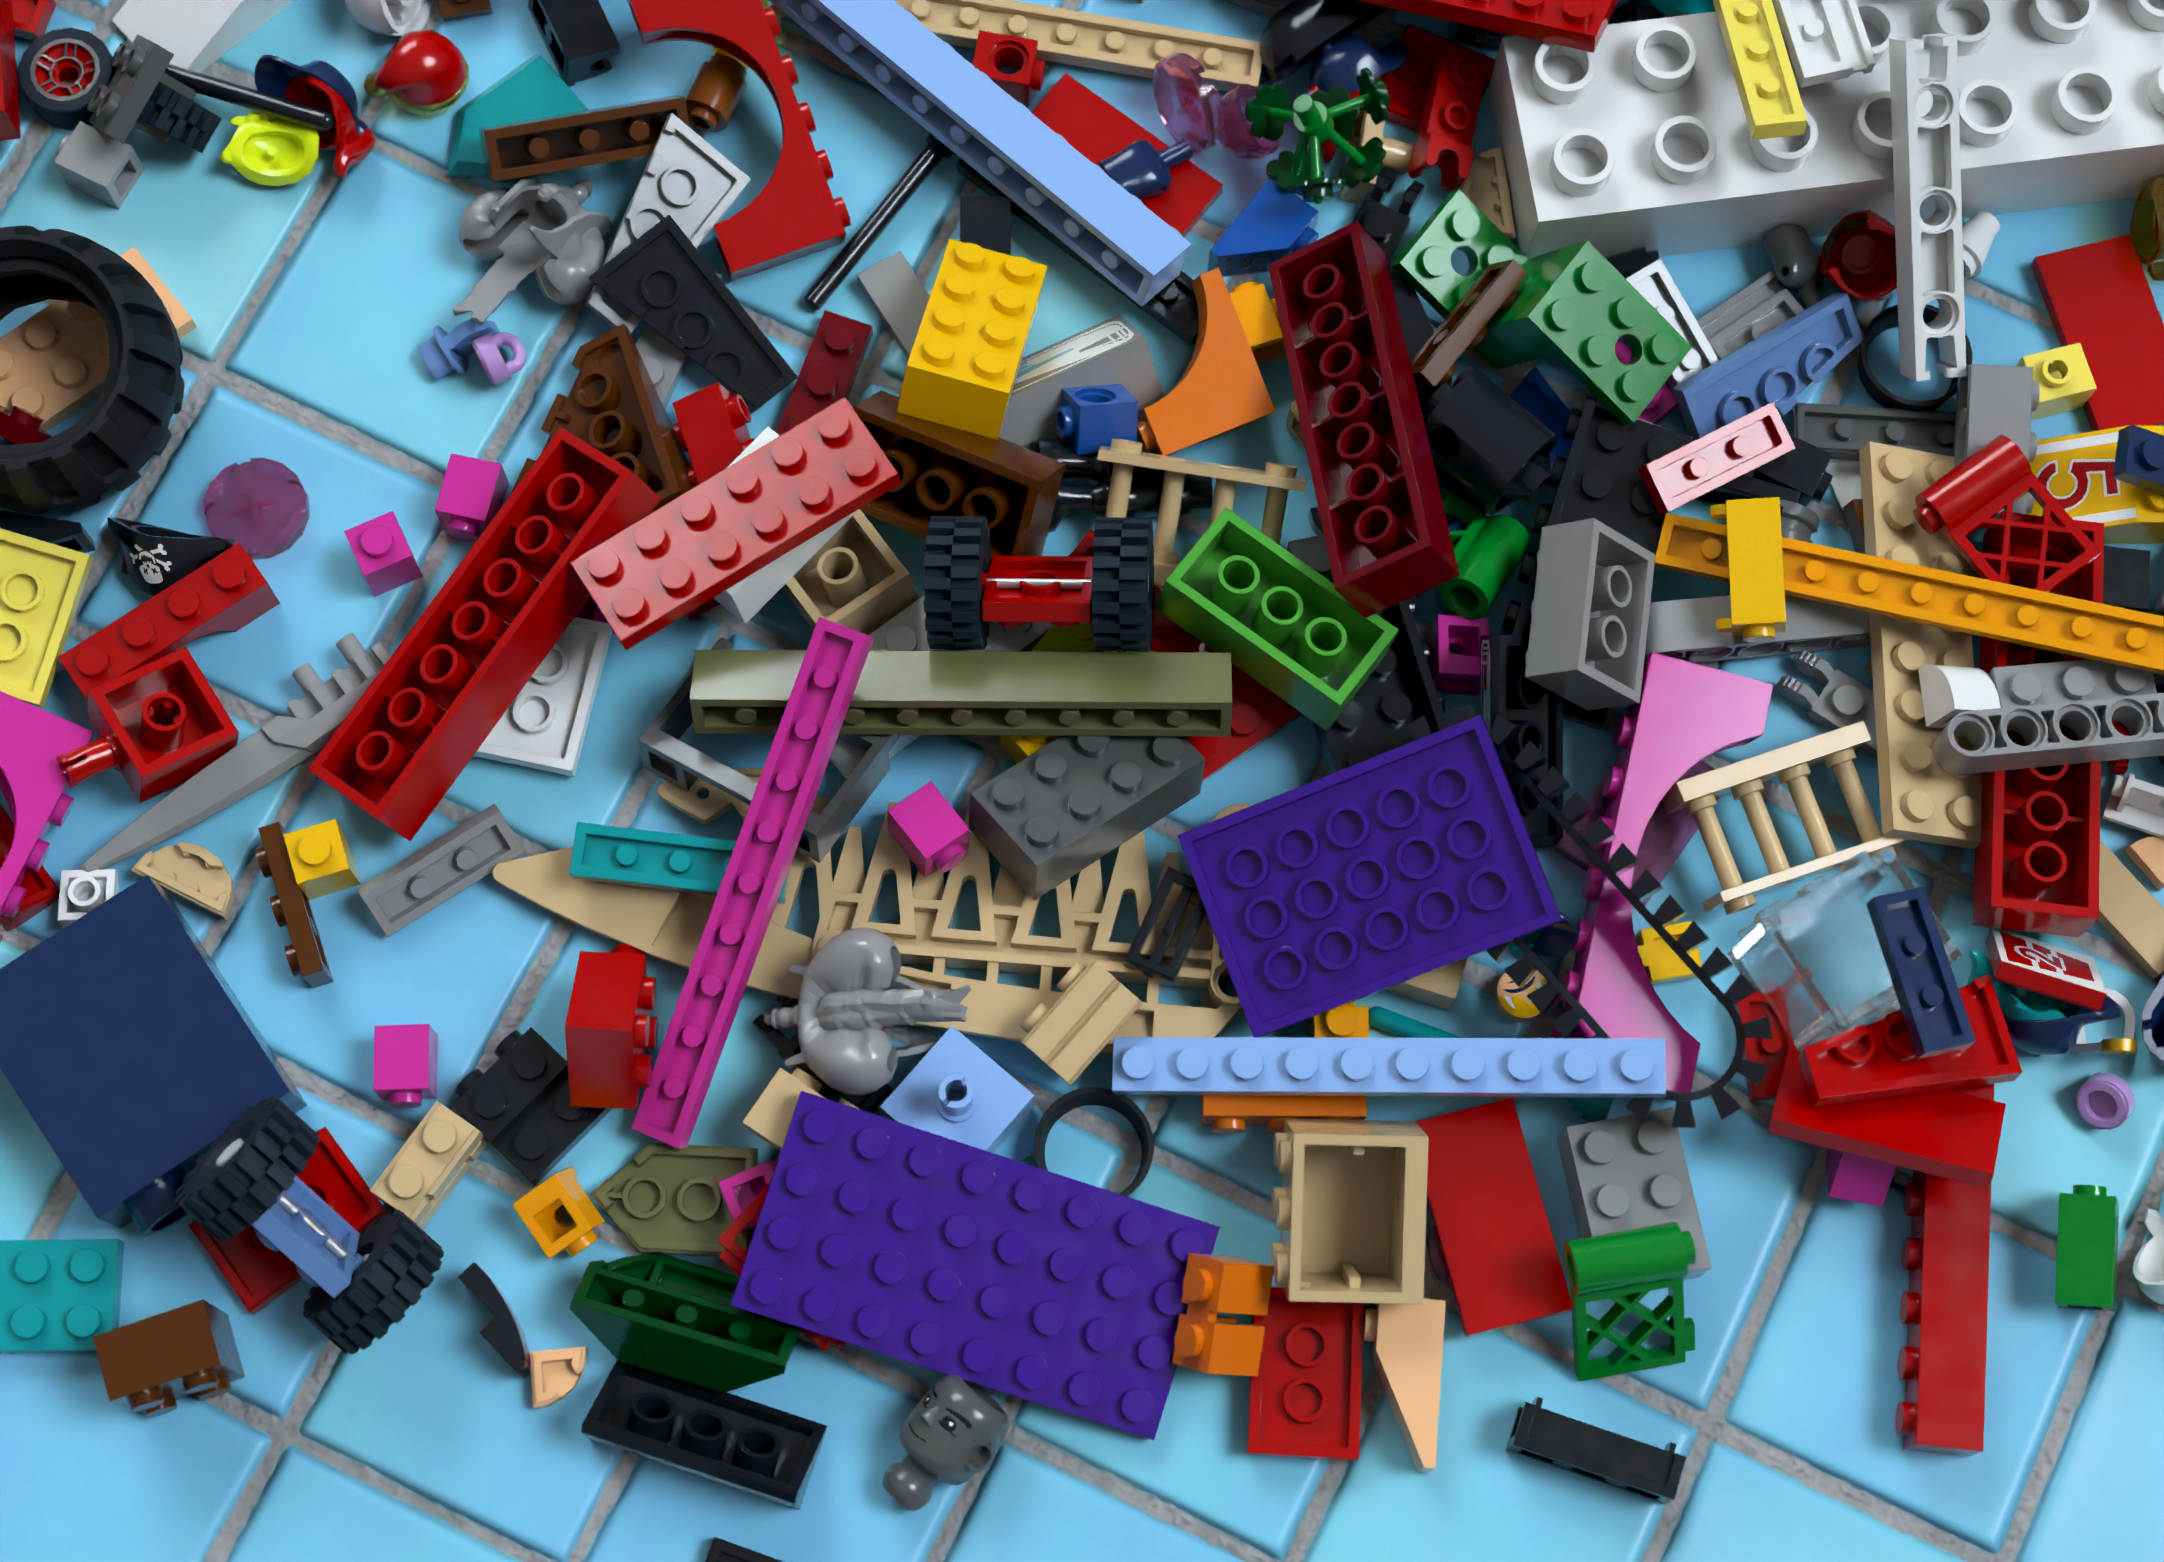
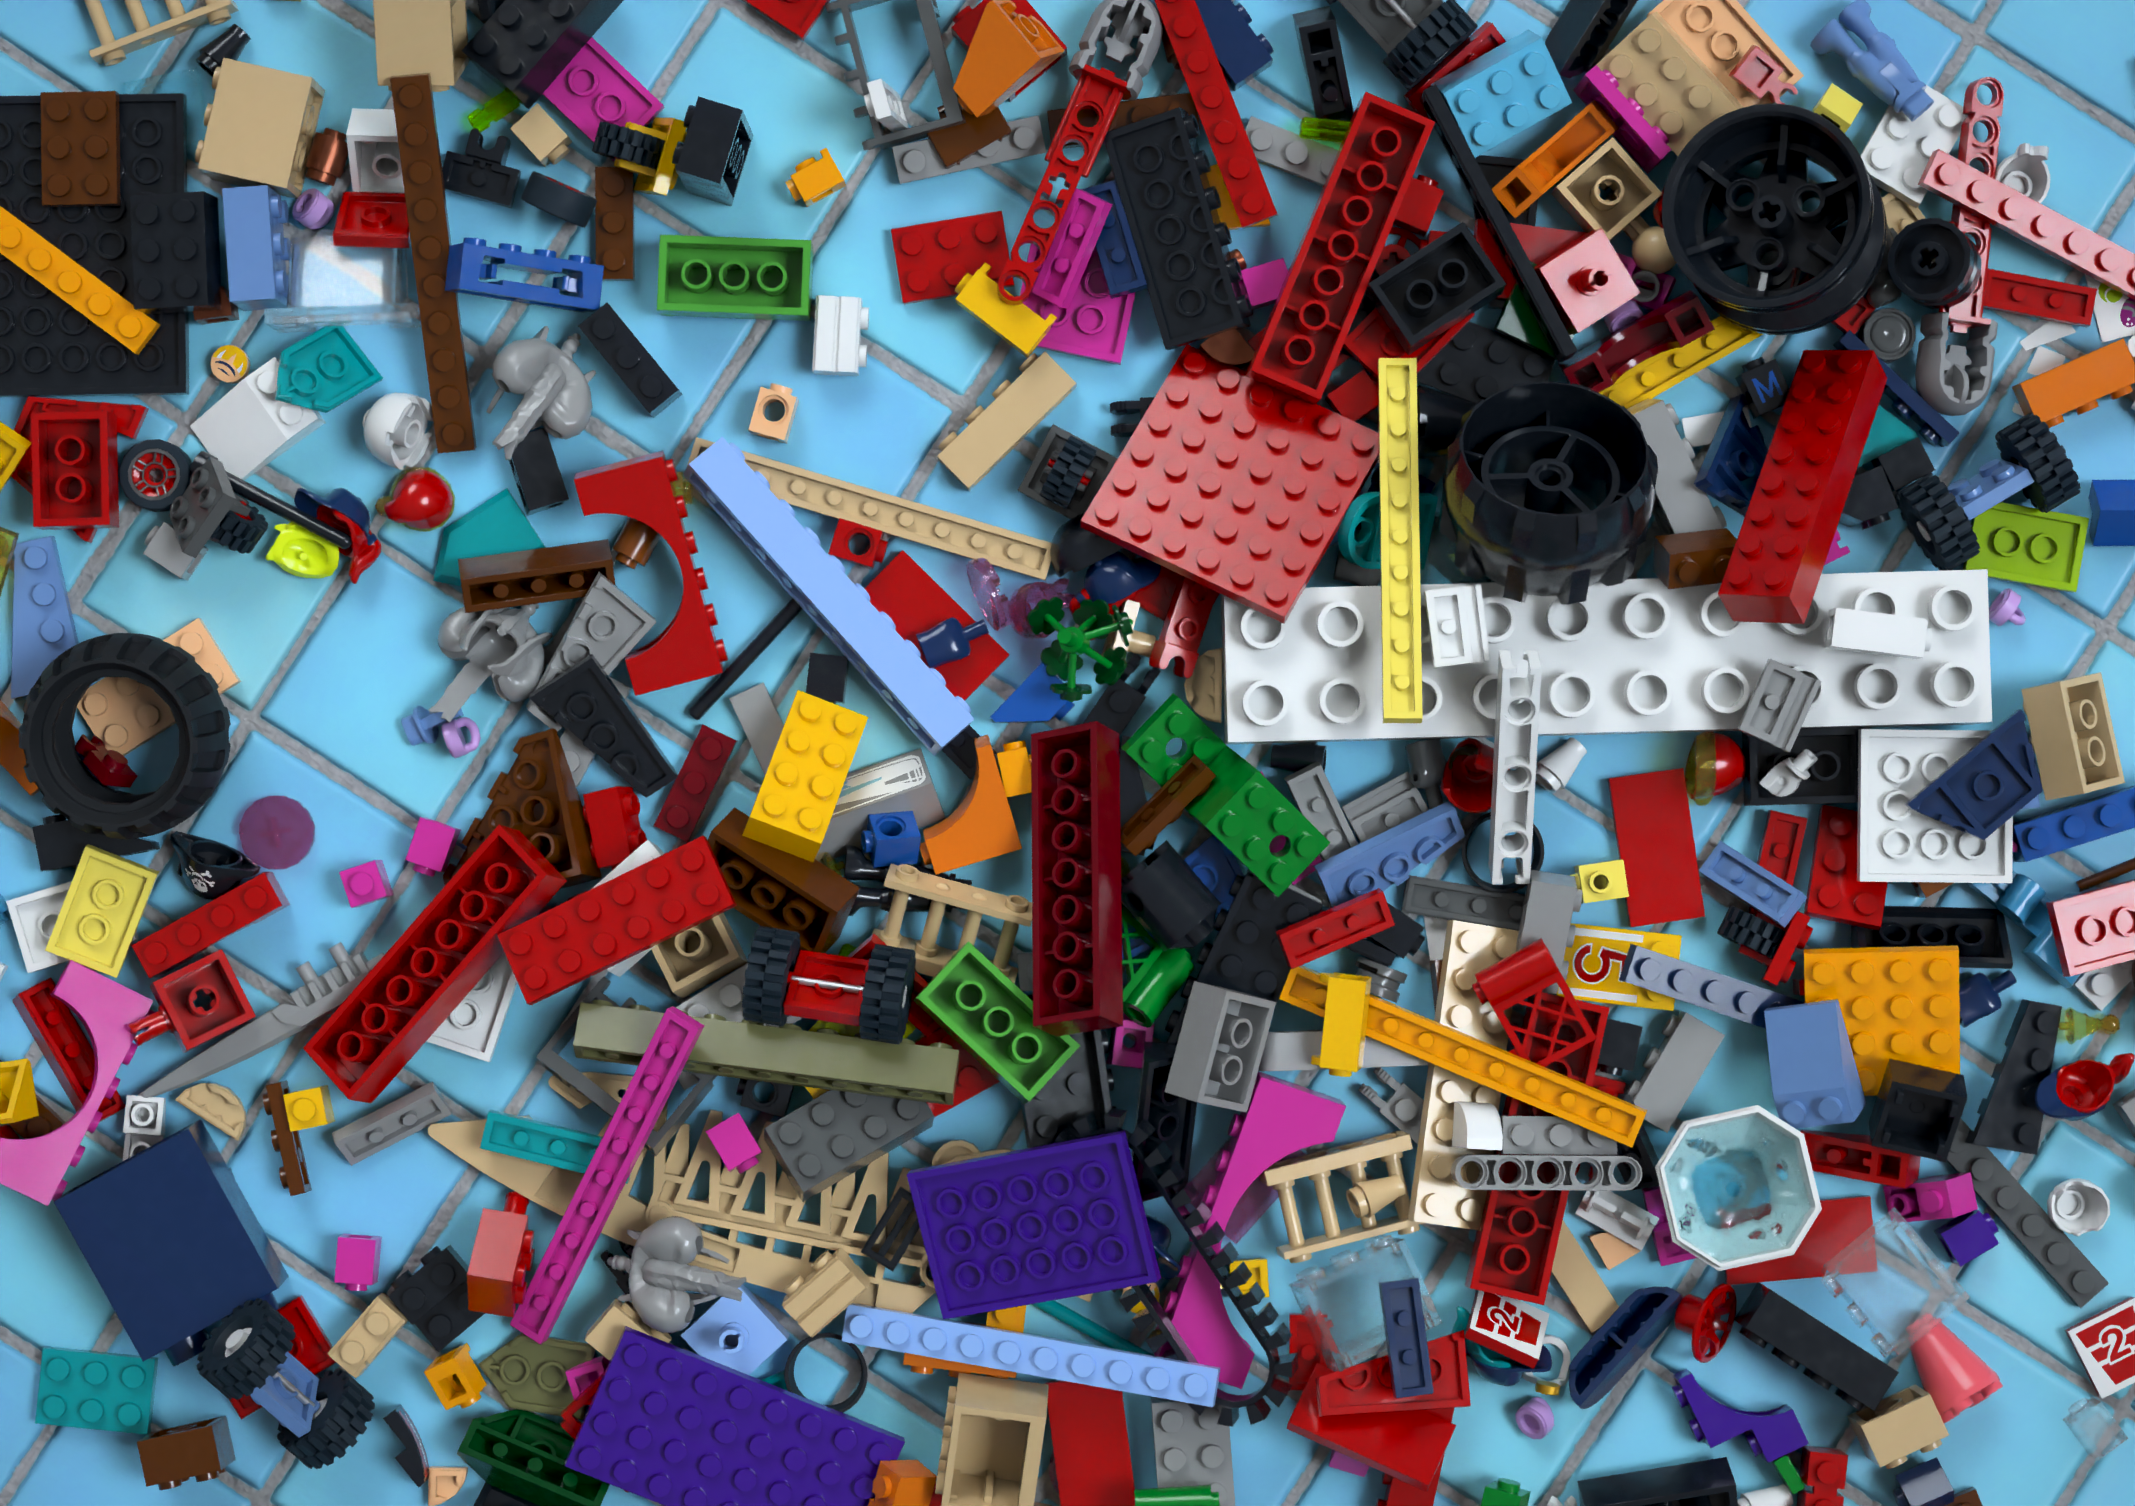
camera: 10 degrees right, 15 degrees up
(982, 755) = (777, 1106): none -> black brick
(1828, 804) = (1373, 1195): none -> tan cone

